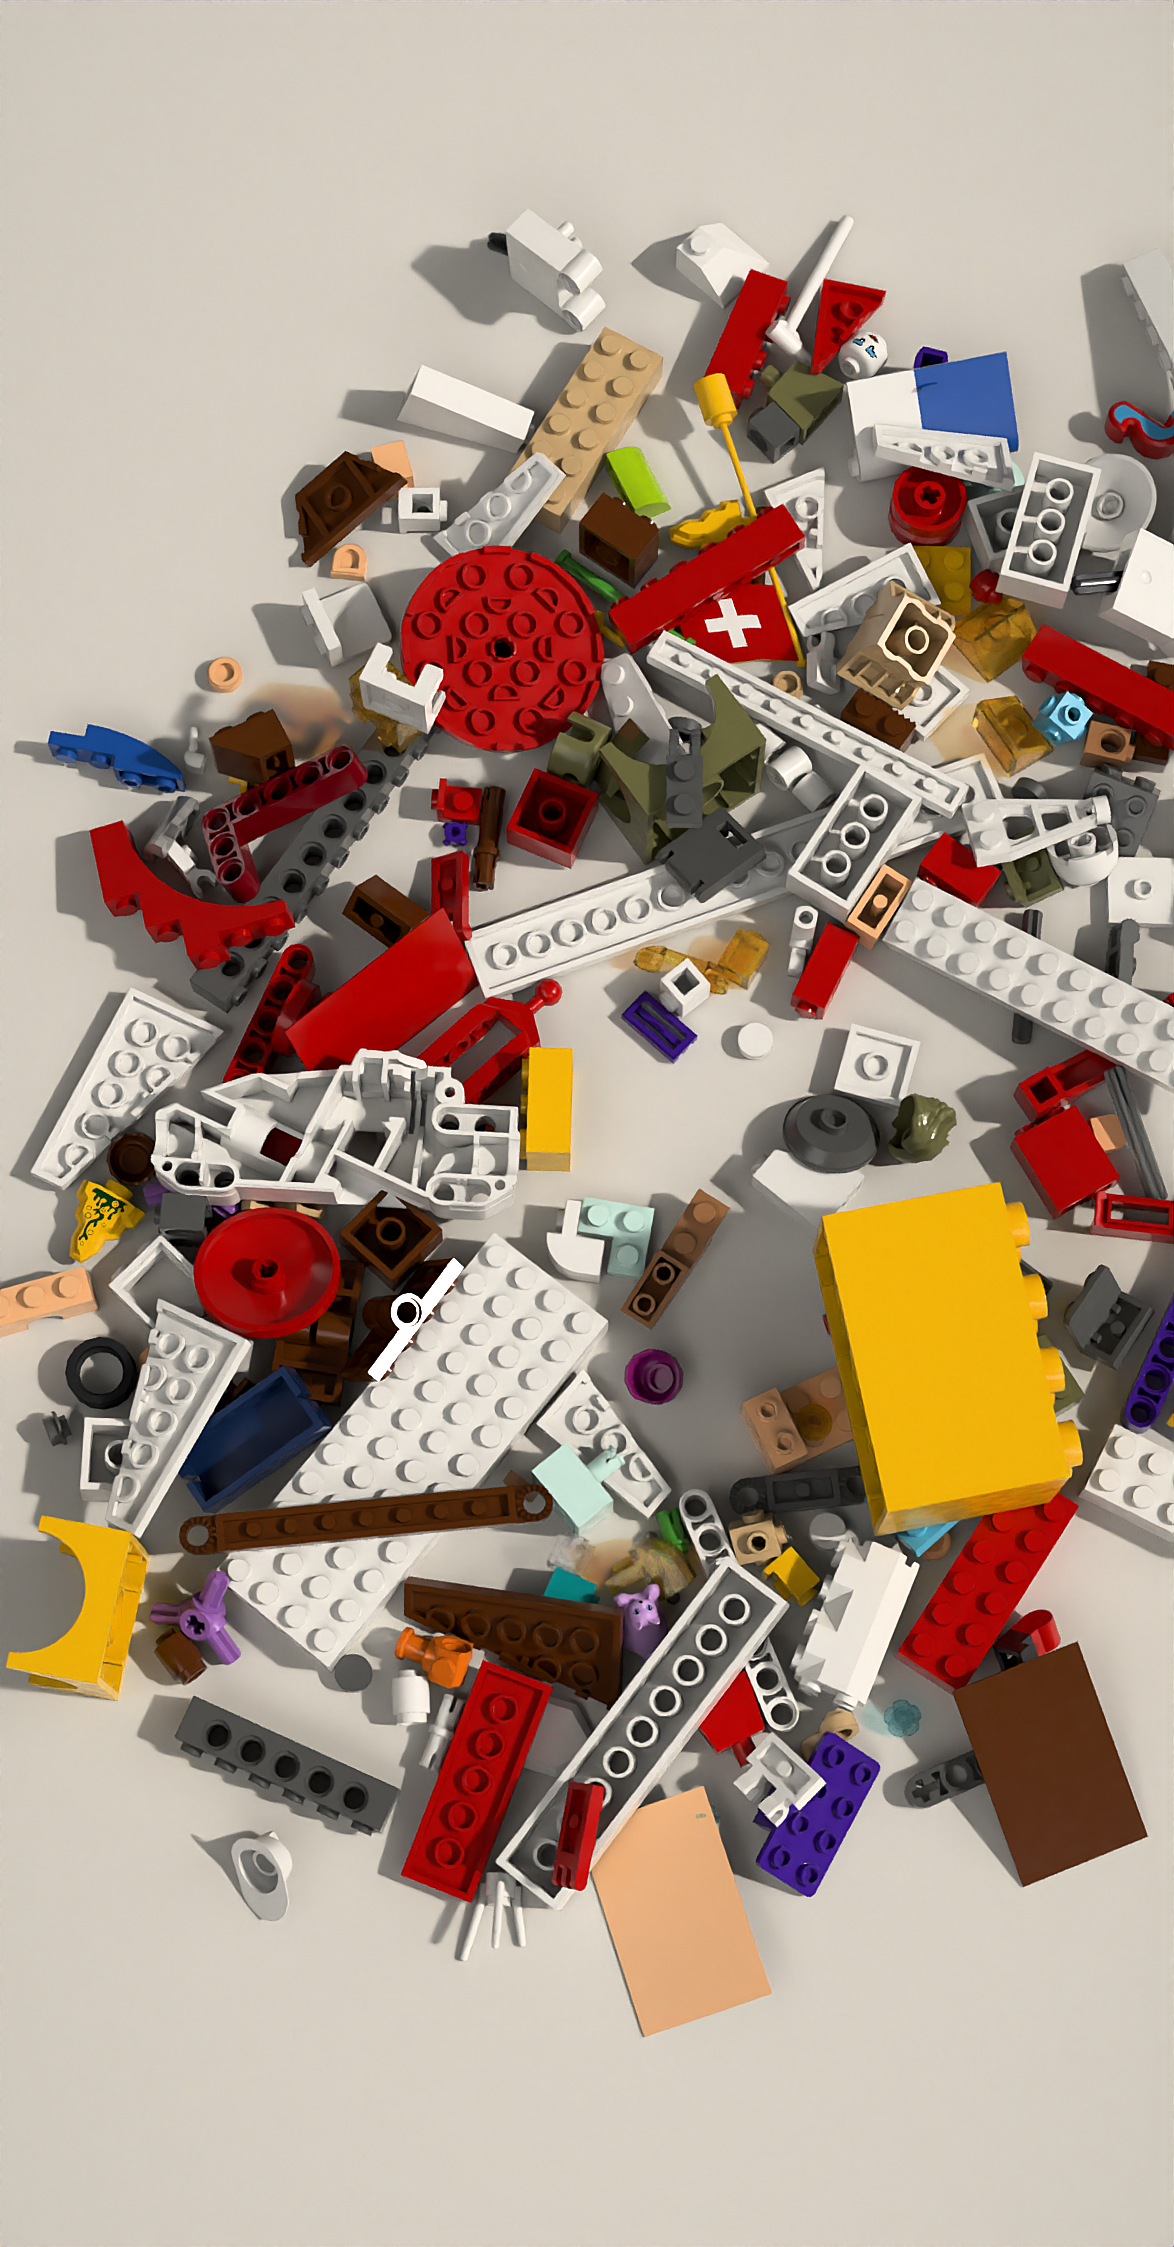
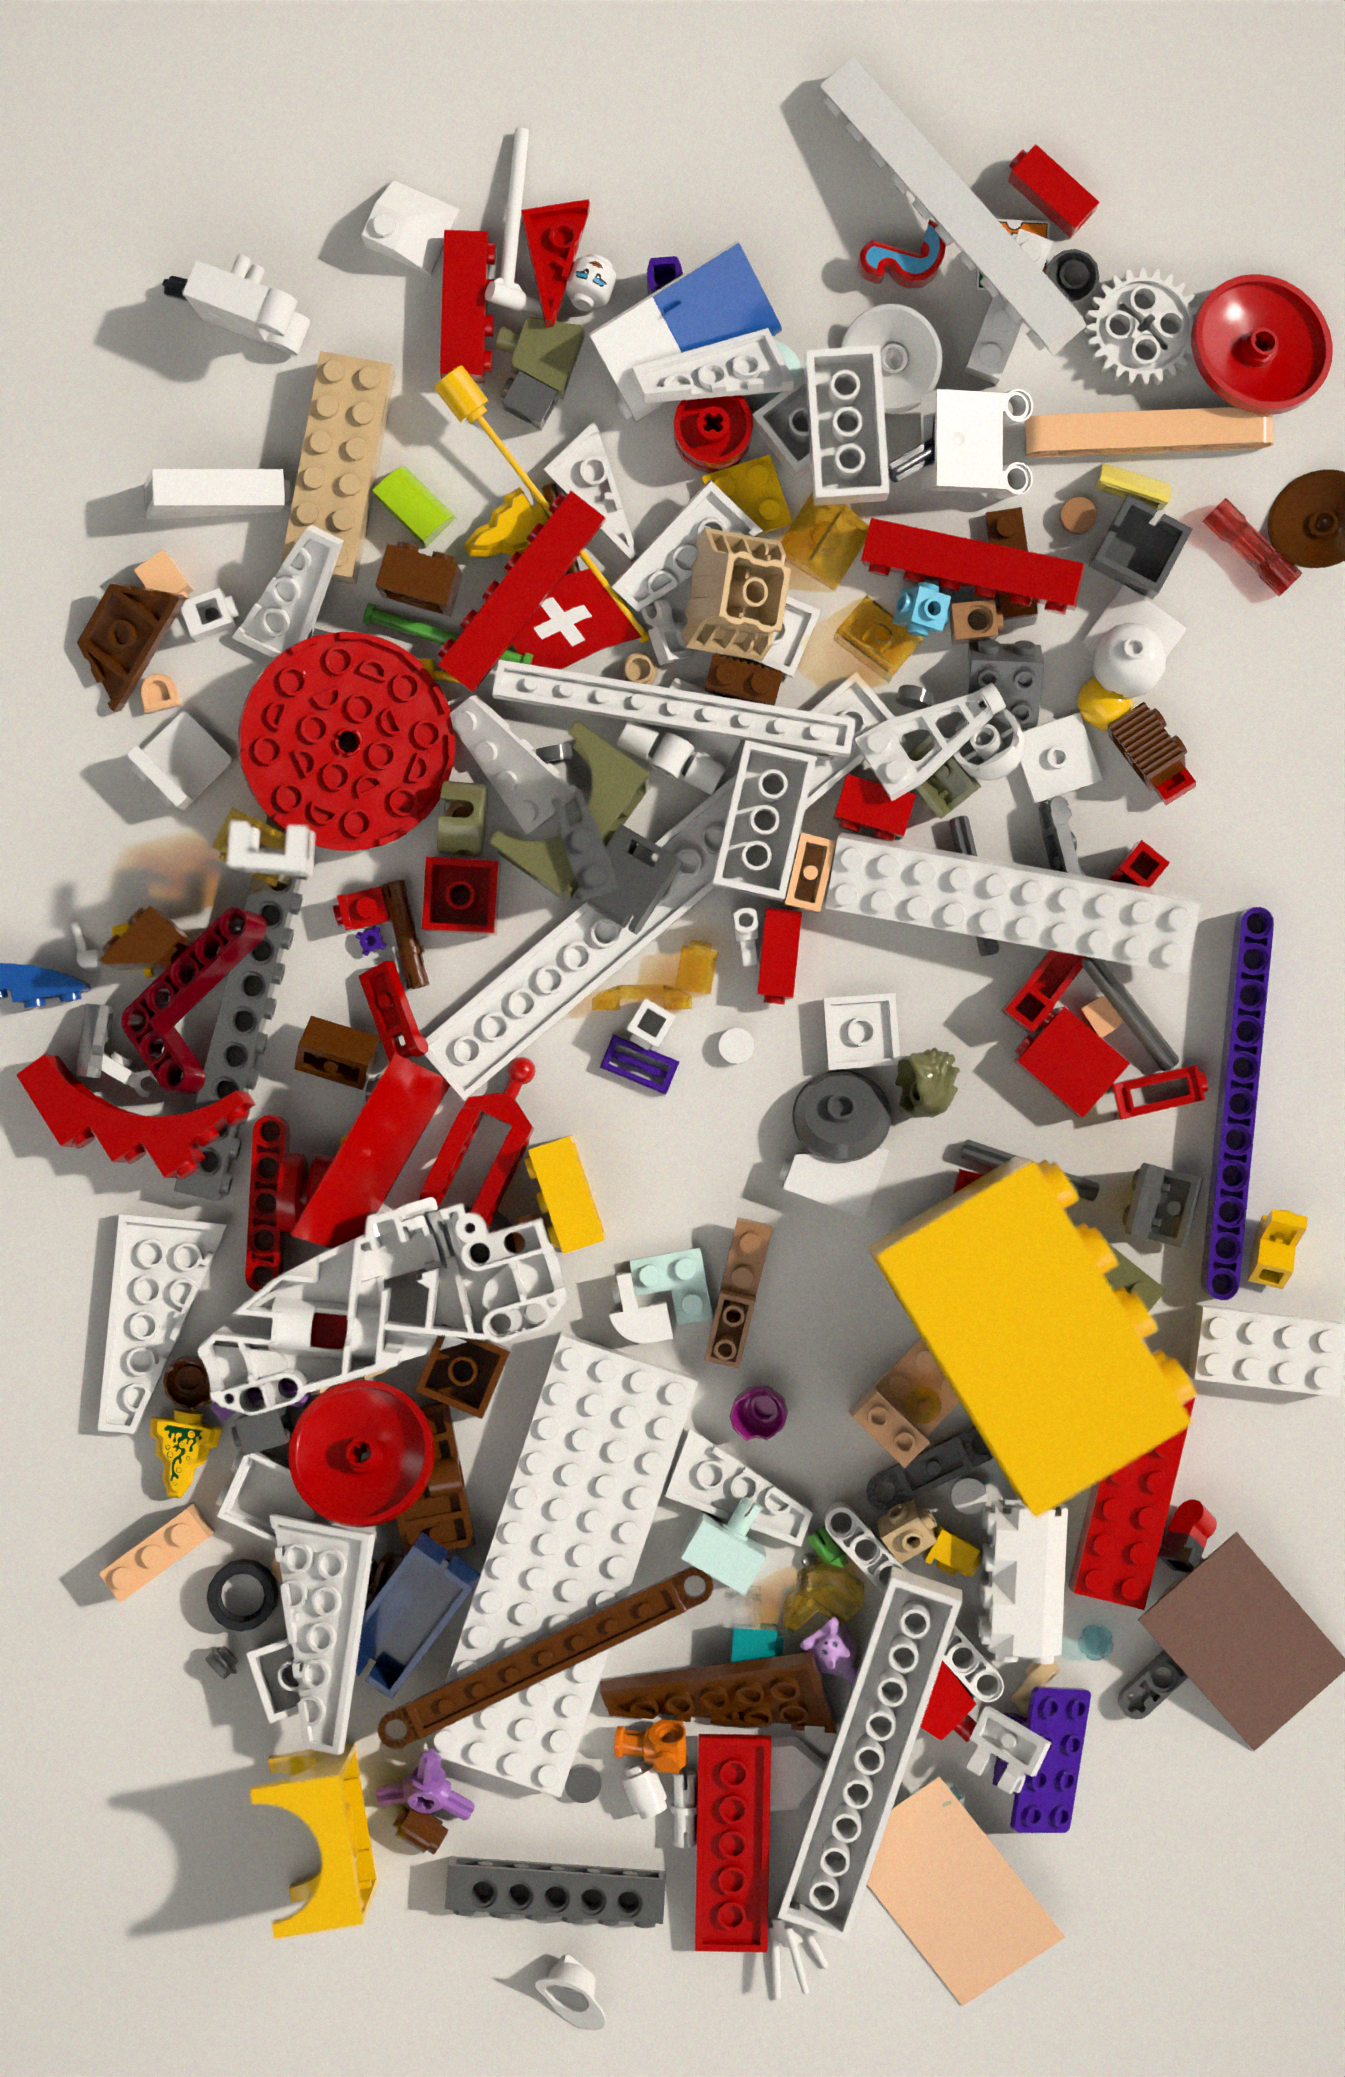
camera: 20 degrees left, 15 degrees up
(224, 675) = (82, 857): light nougat tile -> none
(397, 1318) = (503, 1451): reddish brown plate -> none
(514, 1479) = (670, 1559): medium nougat tile -> none
(577, 1835) = (845, 1875): red hinge -> none
(629, 741) = (503, 804): olive slope -> none
(984, 587) = (800, 494): red plate -> none

